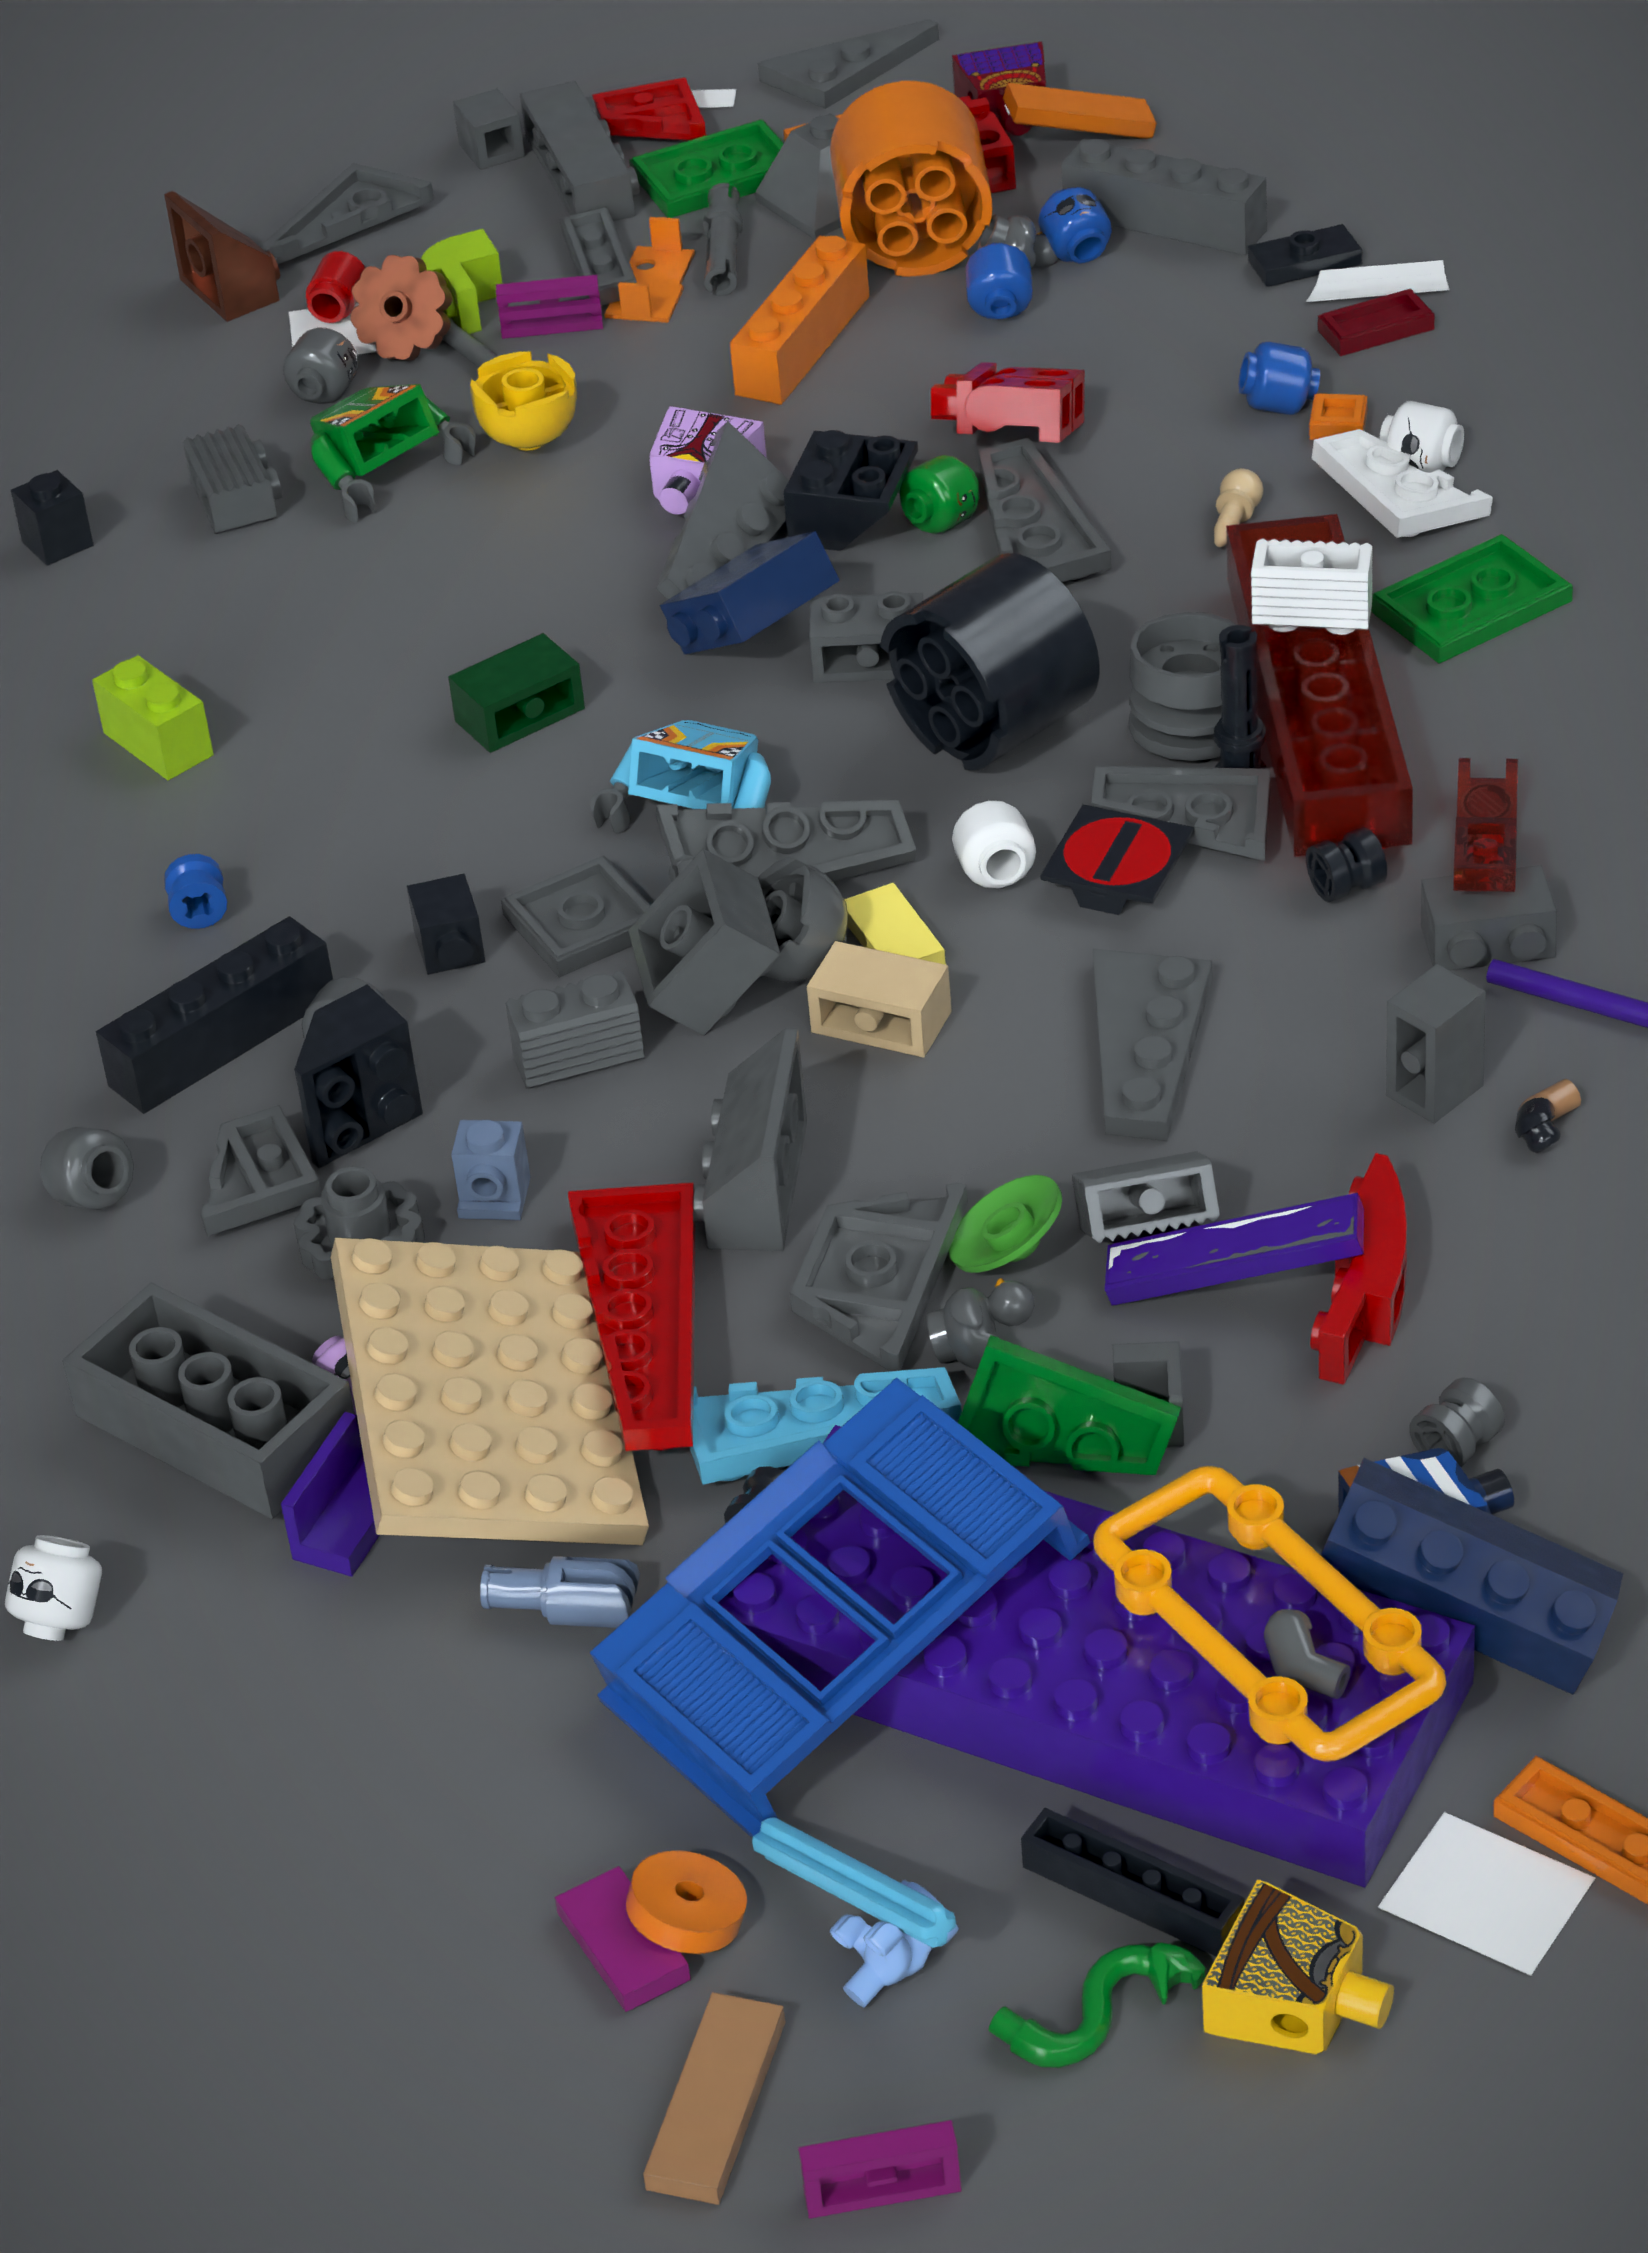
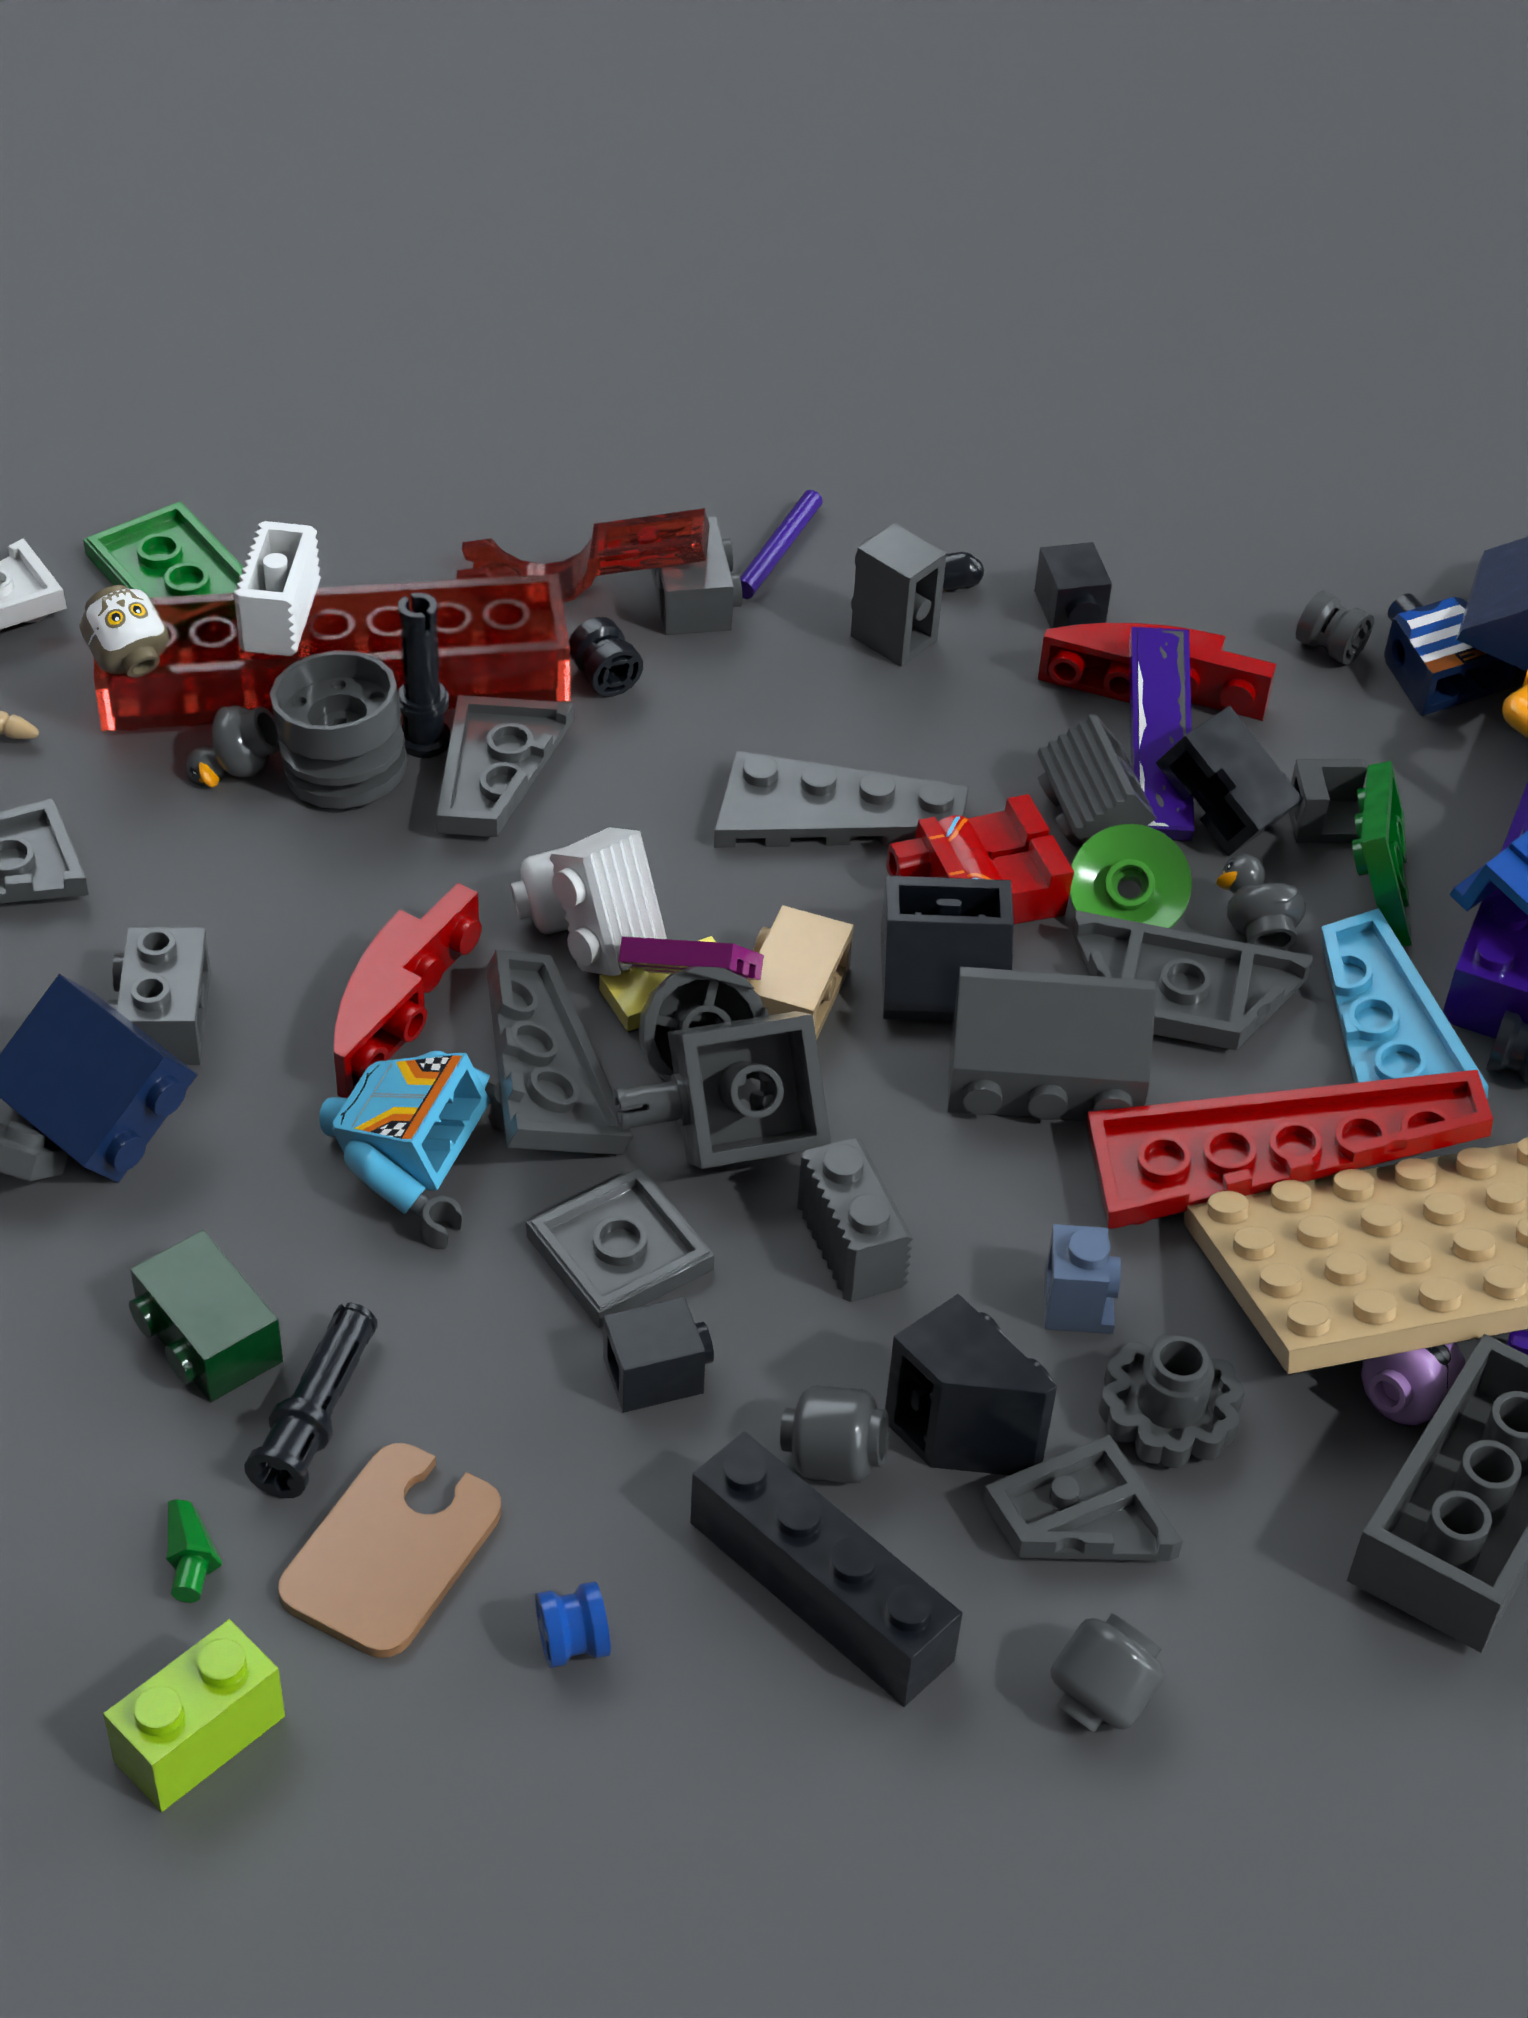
camera: 100 degrees left, 5 degrees up
(292, 809) = (378, 1564): none -> medium nougat piece
(310, 716) = (189, 1551): none -> green bar
(403, 751) = (303, 1422): none -> black pin
(843, 910) = (672, 956): none -> magenta tile
(868, 754) = (387, 988): none -> slope
(905, 1088) = (934, 930): none -> black slope
(945, 853) = (606, 896): none -> white brick
(991, 660) = (306, 848): black brick -> none
(1033, 1118) = (994, 847): none -> red hips
(1115, 857) = (575, 799): piece -> none
(1150, 1287) = (1230, 780): none -> black brick
(1255, 510) = (124, 631): none -> head
(1503, 1206) = (1072, 585): none -> black brick

